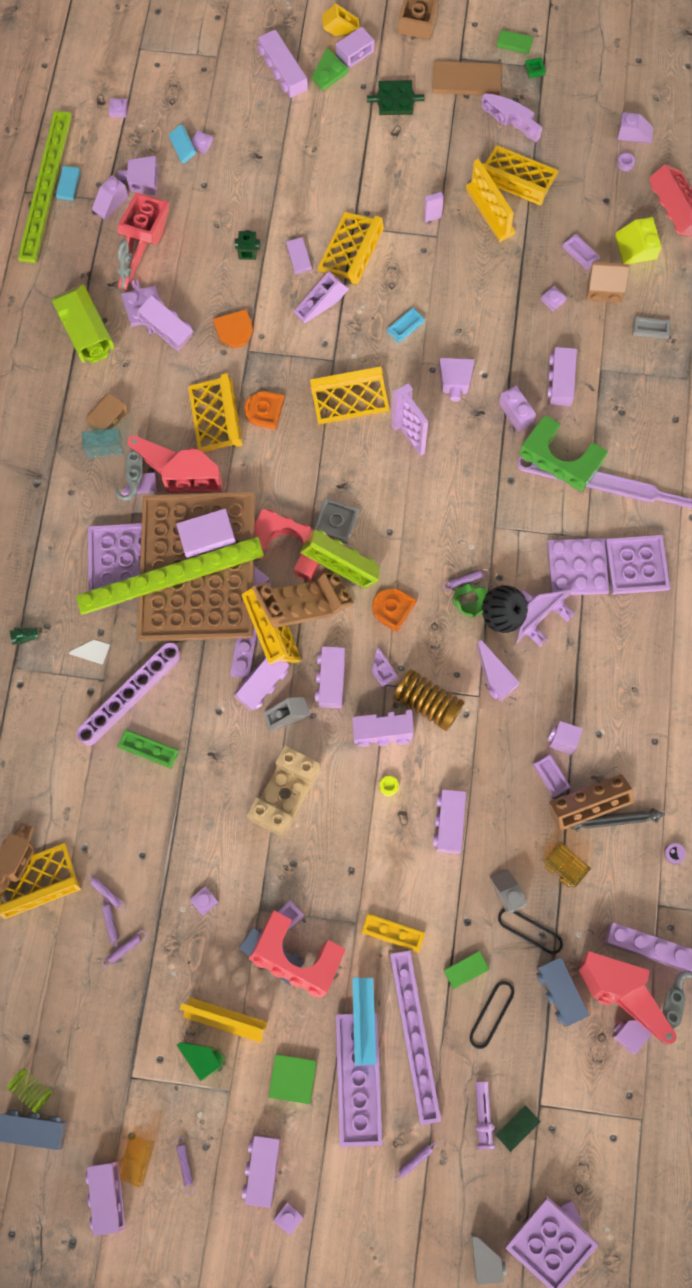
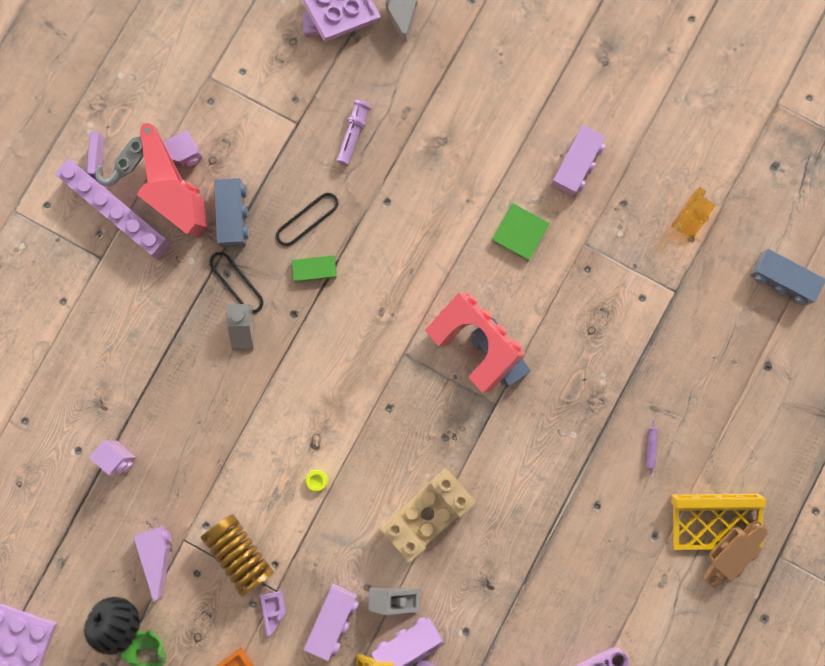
camera: 160 degrees left, 10 degrees up
(20, 1074) = (790, 329): lime piece -> none
(105, 1198) = (733, 191): lavender brick -> none
(106, 892) = (646, 481): lavender piece -> none
(124, 949) = (645, 416): lavender piece -> none
(148, 749) = (555, 619): bright green tile -> none
(184, 1164) = (649, 194): lavender piece -> none
(202, 1059) = (602, 280): green slope -> none
(204, 901) = (549, 434): lavender plate -> none
(224, 1019) = (568, 310): yellow fence -> none
(288, 1218) = (567, 113): lavender plate -> none
(291, 912) = (466, 387): lavender plate -> none
(357, 1090) = (457, 208): lavender plate -> none
(364, 1021) = (432, 256): medium azure fence -> none
(383, 729) = (298, 542): lavender wedge -> none
(393, 932) = (371, 331): yellow tile -> none
(414, 1161) = (429, 119): lavender piece -> none
(415, 1038) = (388, 226): lavender plate -> none
(450, 821) = (269, 418): lavender brick -> none
(517, 1128) = (326, 111): clear green plate -> none
(538, 609) = (76, 612): lavender connector -> none
(552, 776) = (146, 425): lavender tile -> none
(566, 866) = (171, 329): clear yellow brick -> none
(591, 802) = (117, 382): medium nougat brick -> none
(620, 819) = (103, 356): dark grey wheel -> none
(674, 853) = (60, 301): lavender tile -> none

